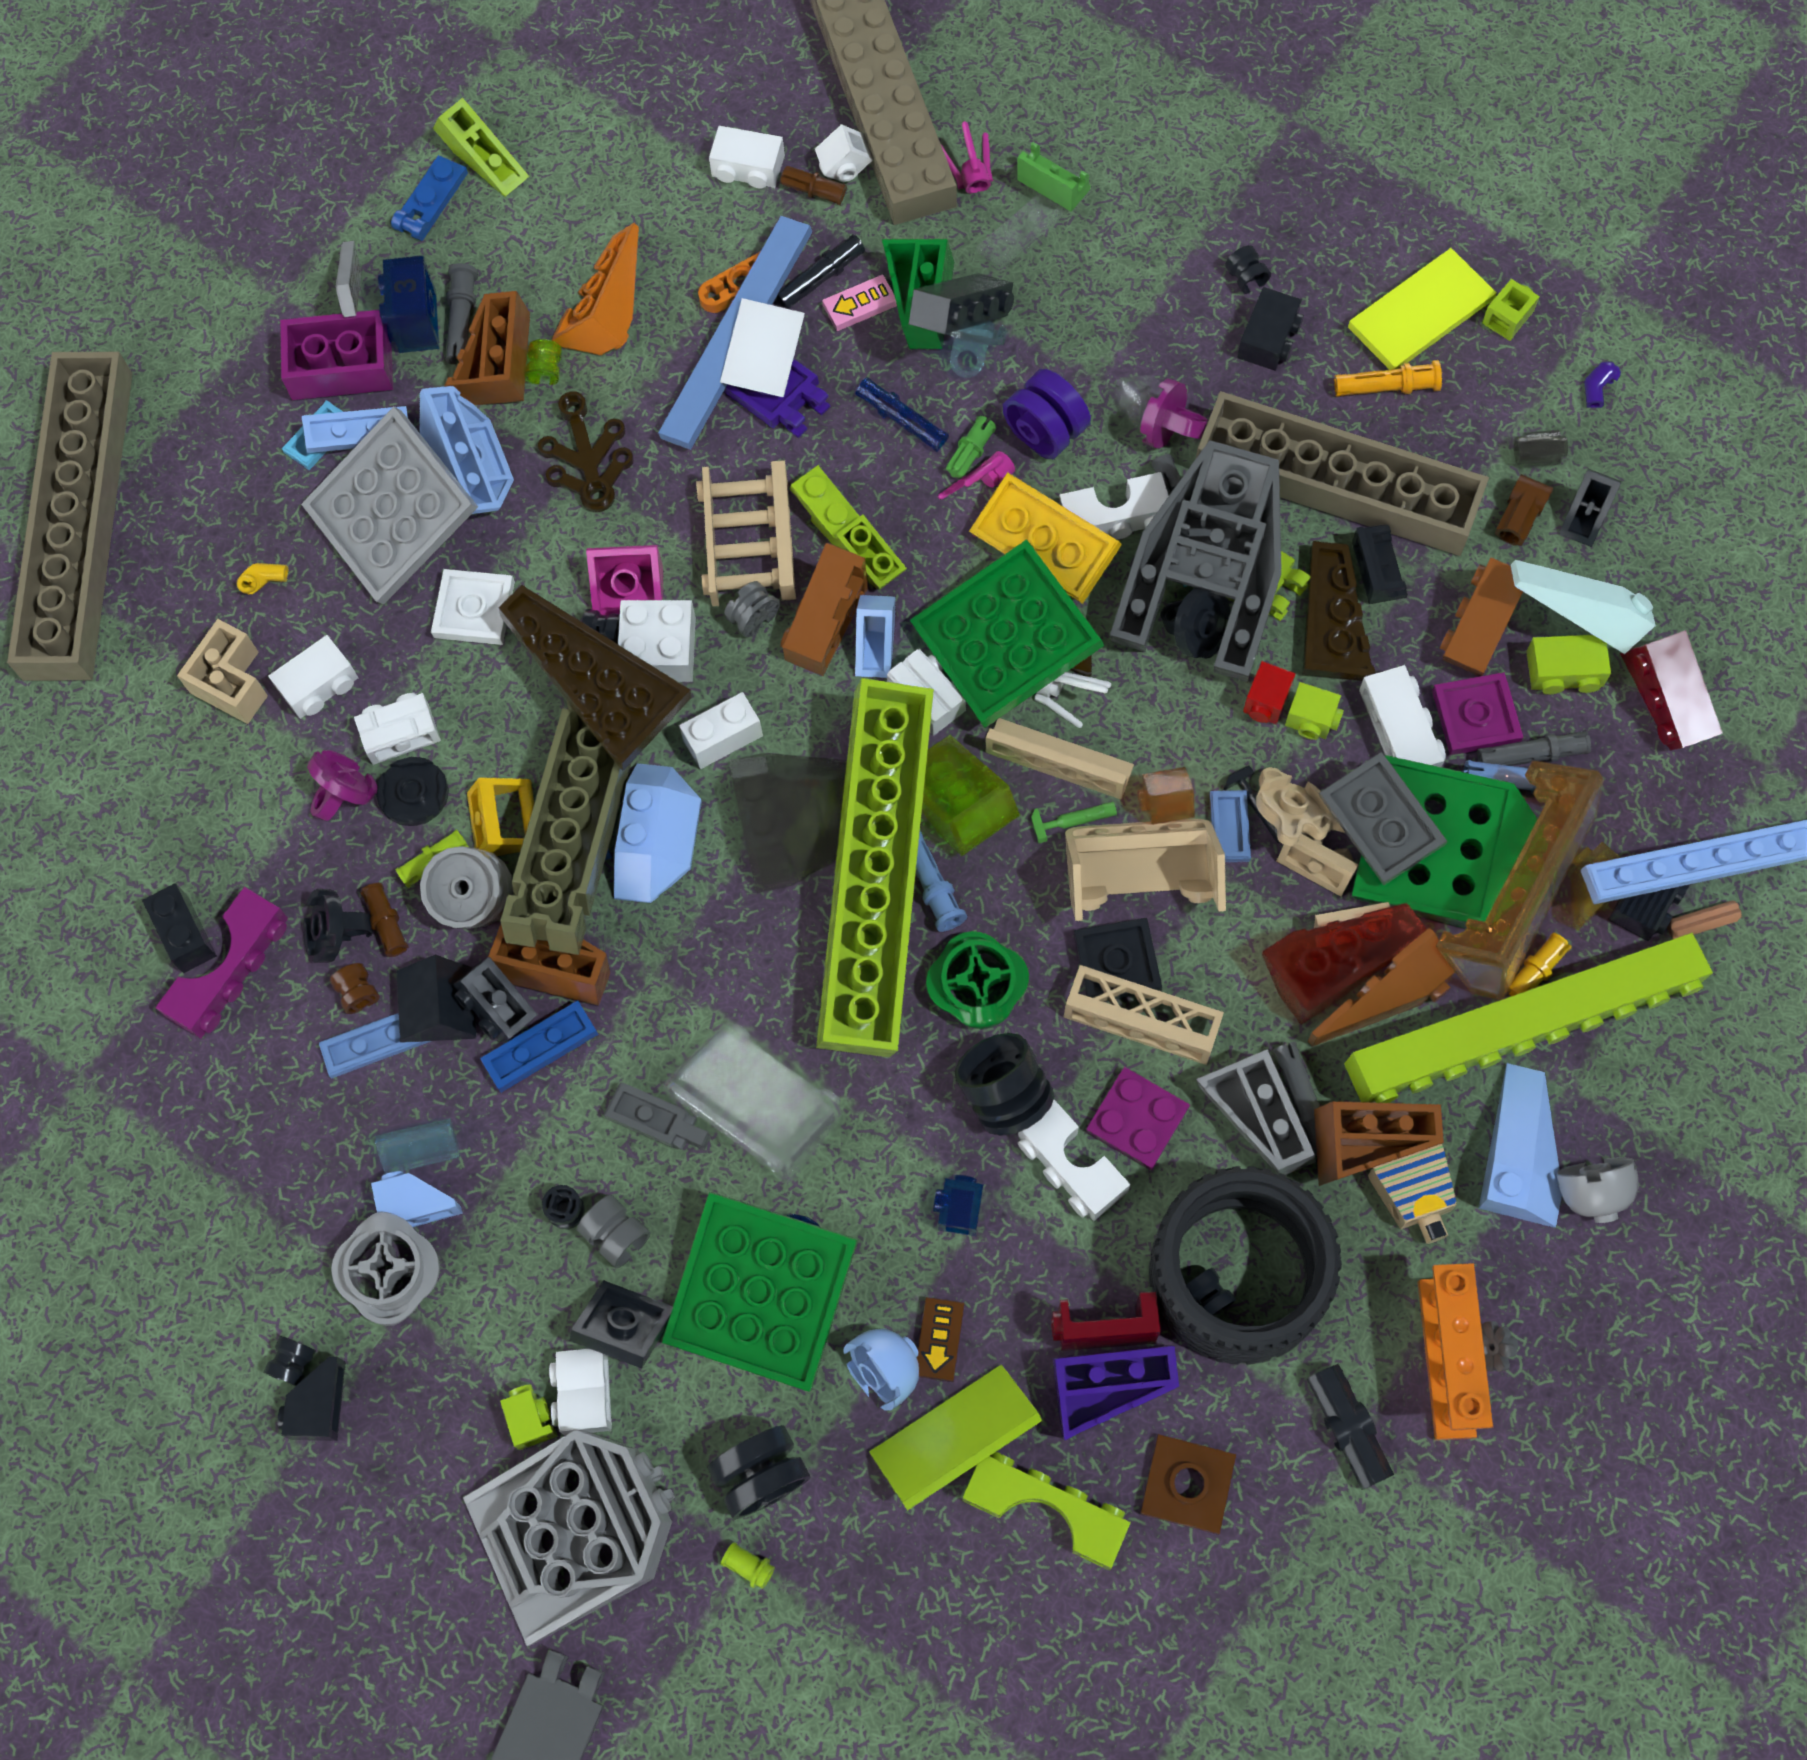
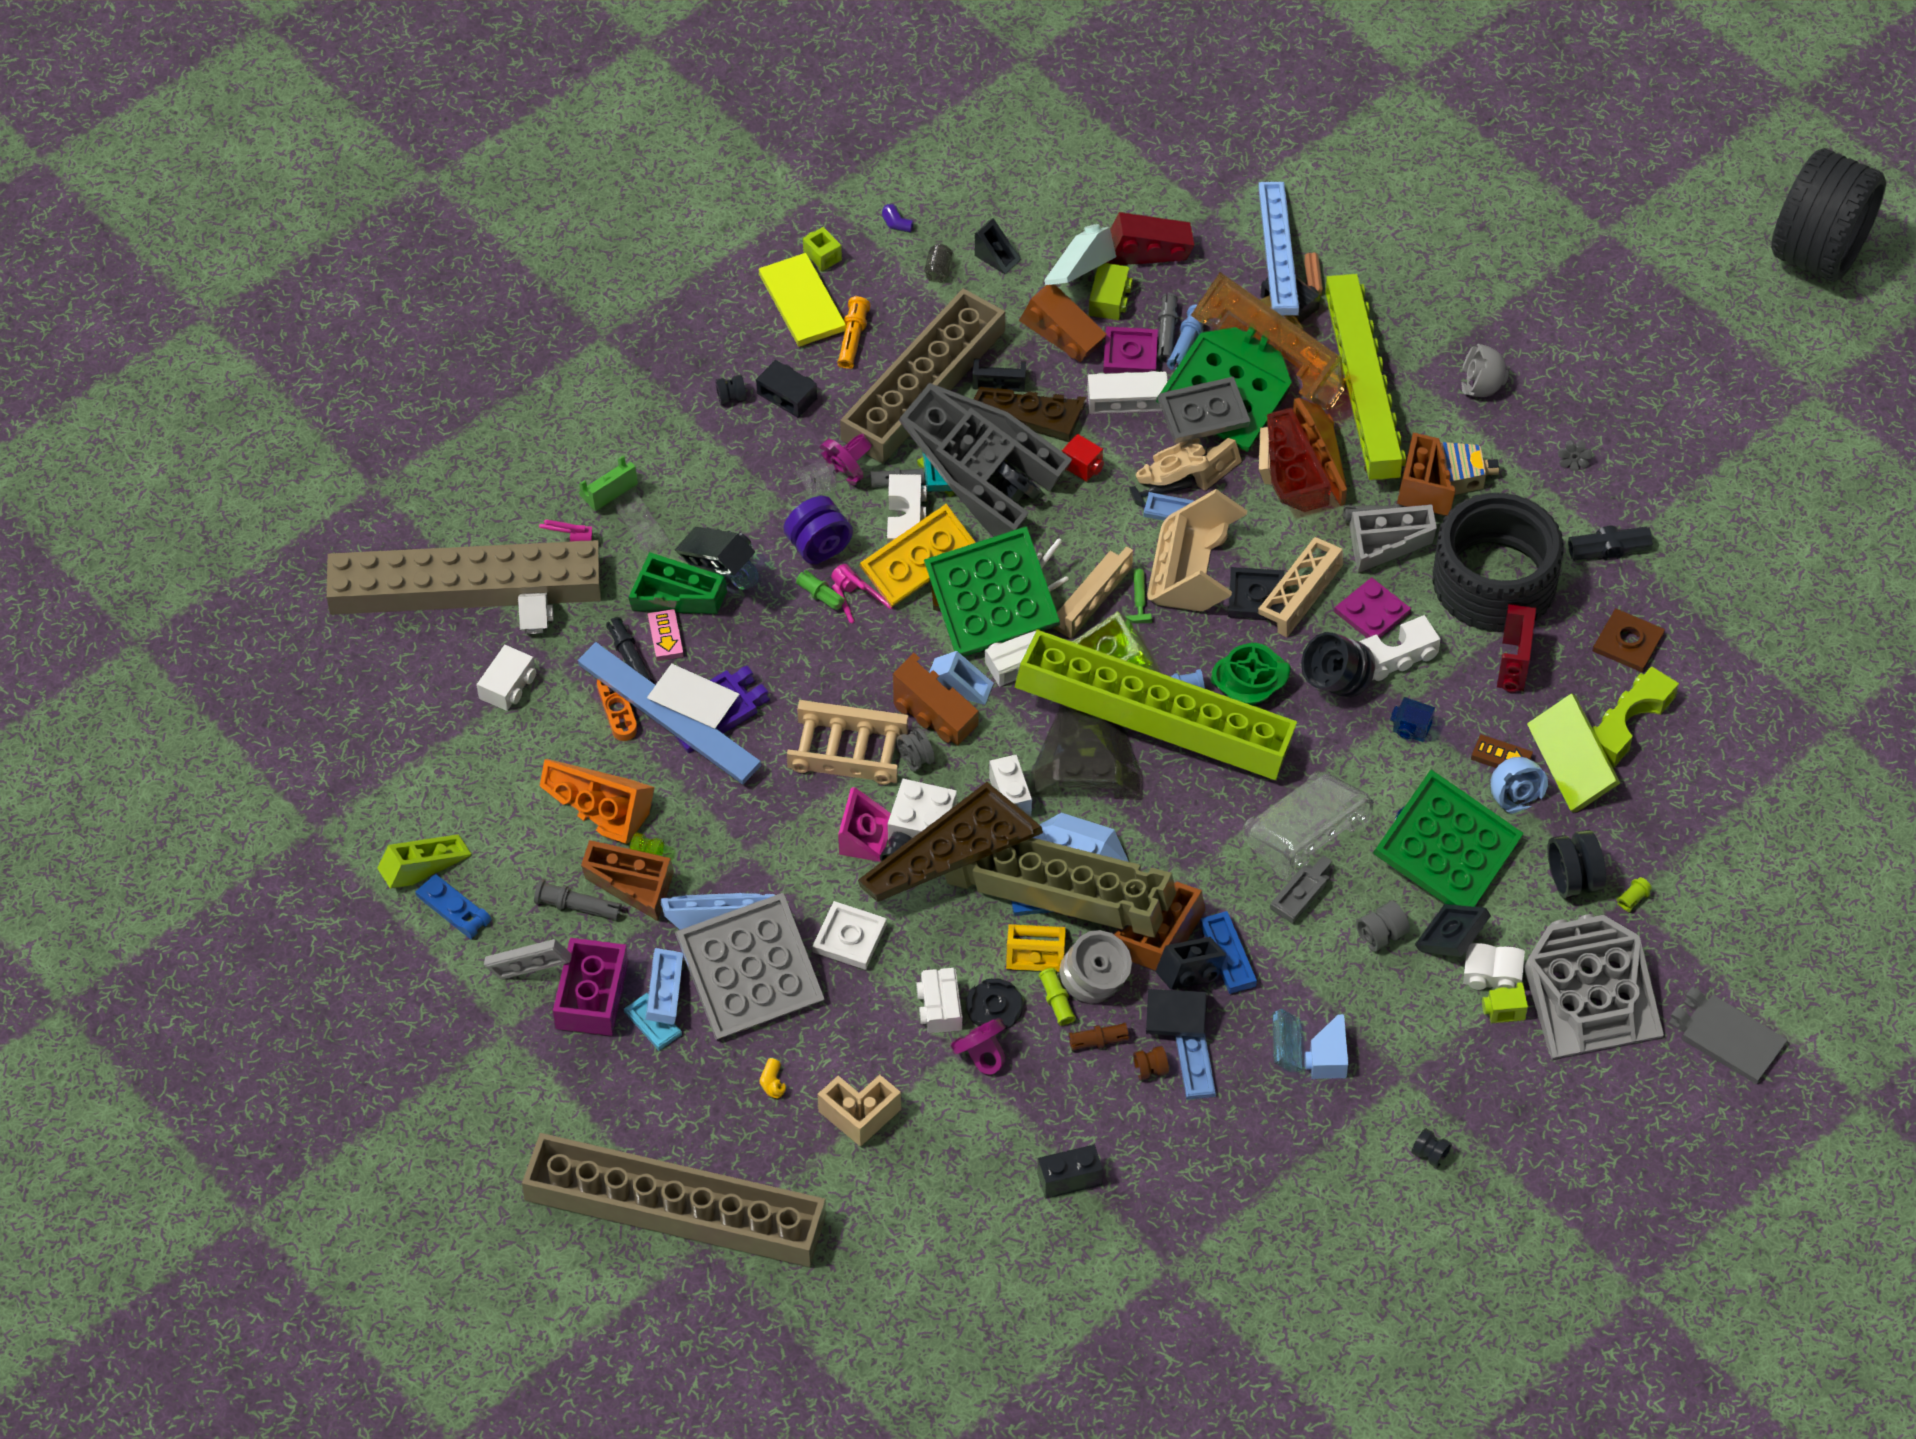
camera: 80 degrees left, 15 degrees down
(198, 1001) = (1081, 1123): magenta arch -> none
(314, 677) = (879, 1050): white brick -> none
(315, 1404) = (1468, 1133): black slope -> none
(331, 926) = (1099, 1067): black tile -> none
(346, 1267) = (1372, 1065): light grey piece -> none
(409, 304) = (565, 917): clear blue brick -> none
(567, 1213) = (1355, 962): black wheel -> none
(586, 458) = (739, 838): dark brown plant -> none
(813, 184) = (548, 640): reddish brown axle -> none
(845, 528) = (860, 682): lime slope -> none
(871, 392) = (752, 641): clear blue pin -> none
(1109, 1383) = (1556, 659): dark purple wedge -> none
(1167, 796) = (1143, 533): clear orange brick -> none
(1314, 712) = (1106, 435): lime brick -> none
(1455, 1352) = (1577, 484): orange fence -> none
(1523, 1152) = (1455, 413): light blue wedge -> none
(1524, 506) = (979, 282): reddish brown piece -> none

